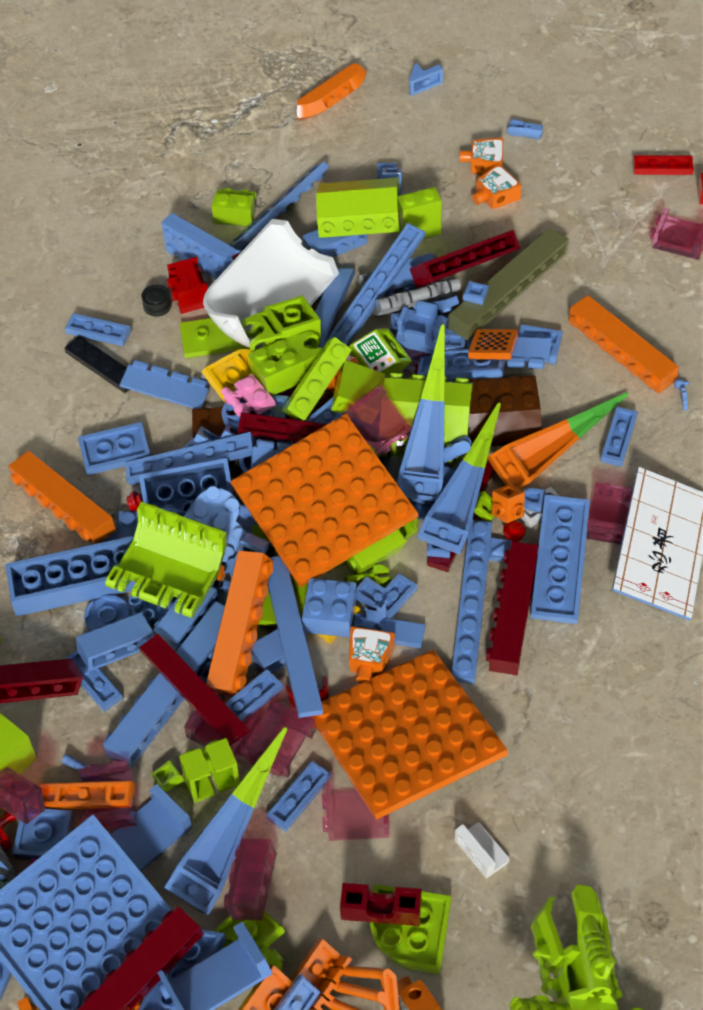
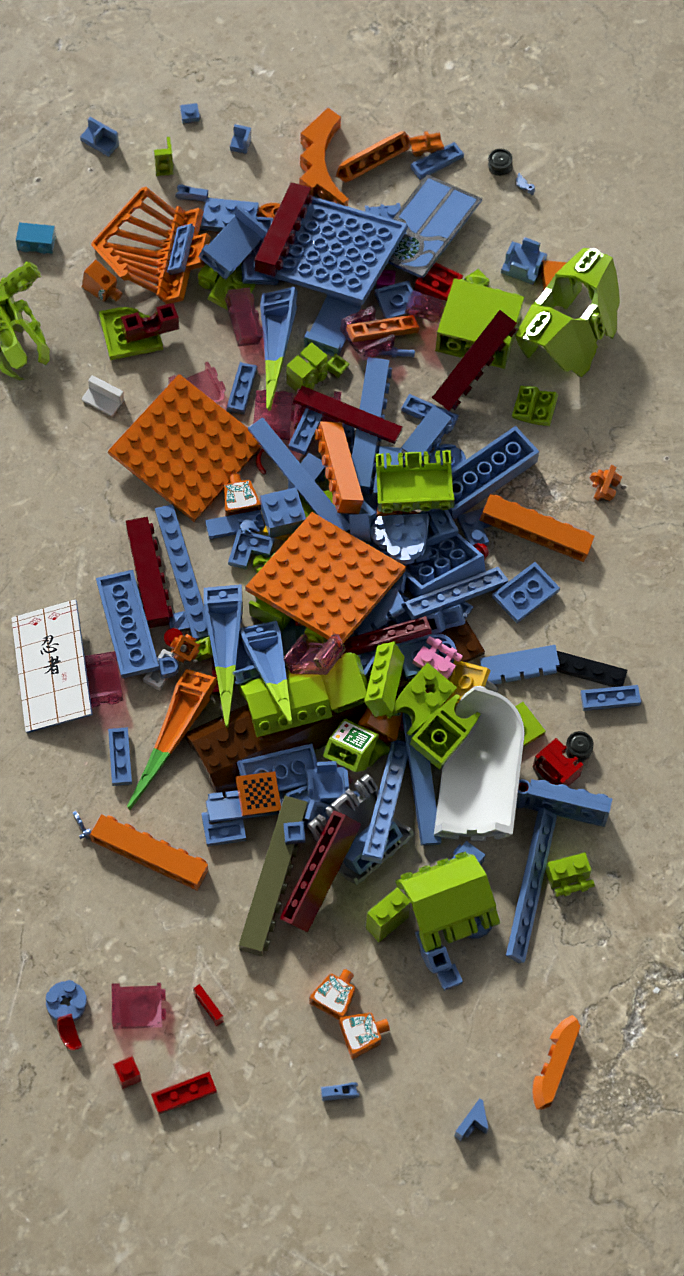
camera: 150 degrees right, 10 degrees up
(615, 214) = (208, 1005): none -> red tile

